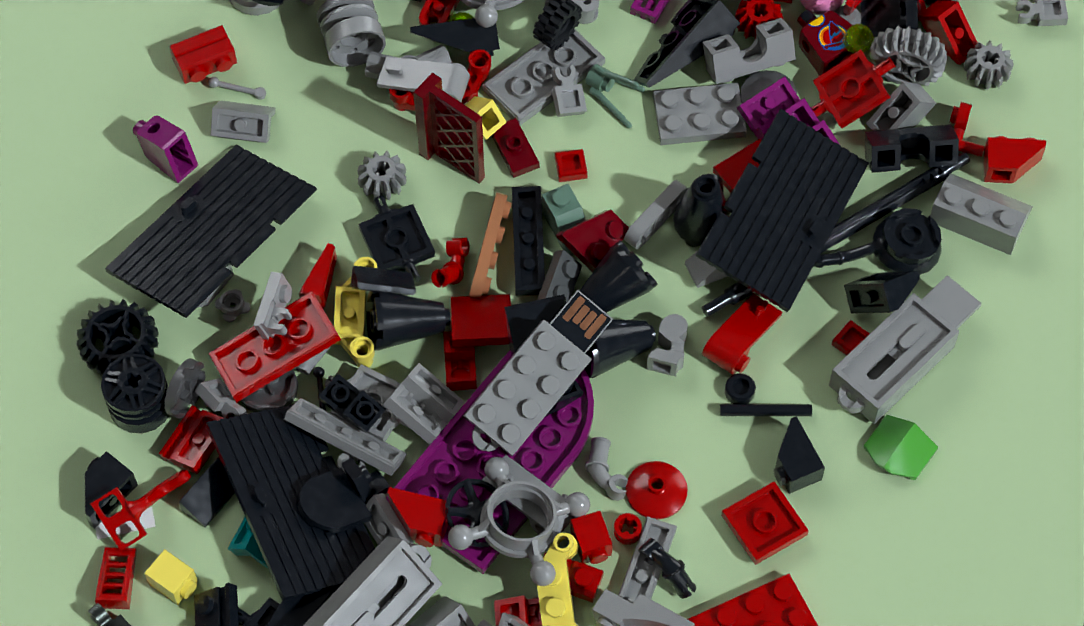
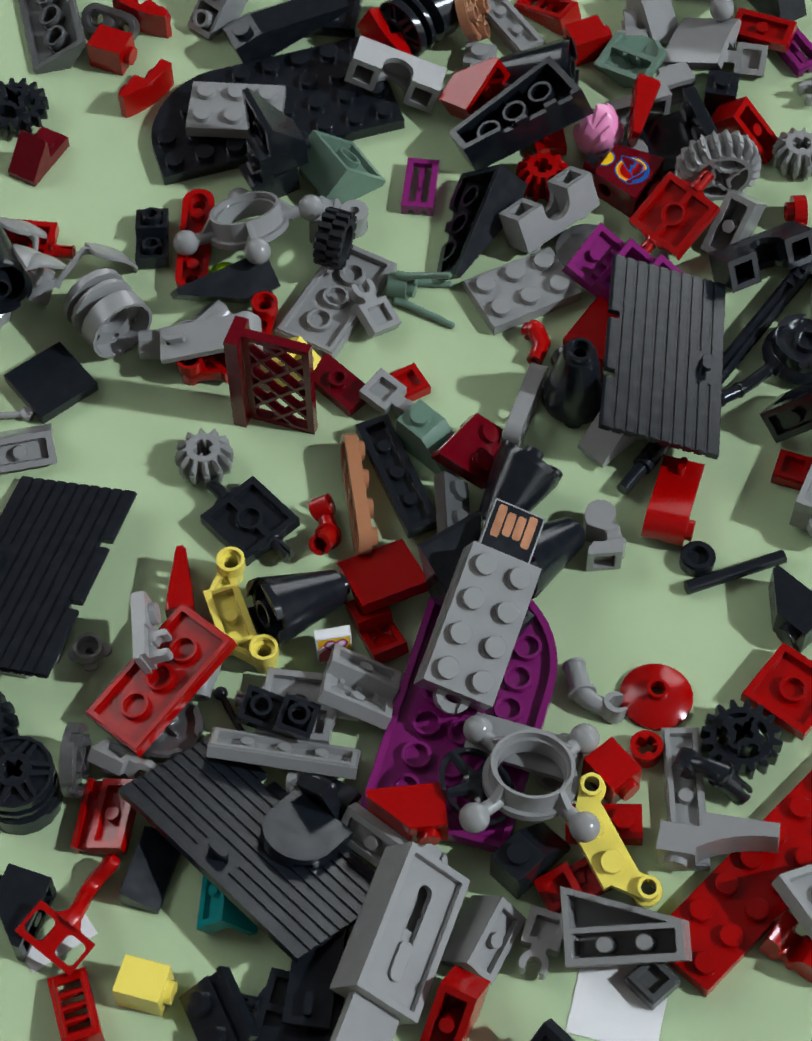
camera: 20 degrees left, 5 degrees down
(288, 73) = (51, 382): none -> black tile
(382, 280) = (247, 567): black slope -> none
(414, 356) = (326, 639): none -> white tile
(497, 580) = (526, 857): none -> black slope
(546, 168) = (385, 394): none -> light grey plate
(694, 158) = (540, 339): none -> red arm
(706, 534) = (734, 724): none -> black gear
(858, 38) = (659, 162): clear neon green tile -> none

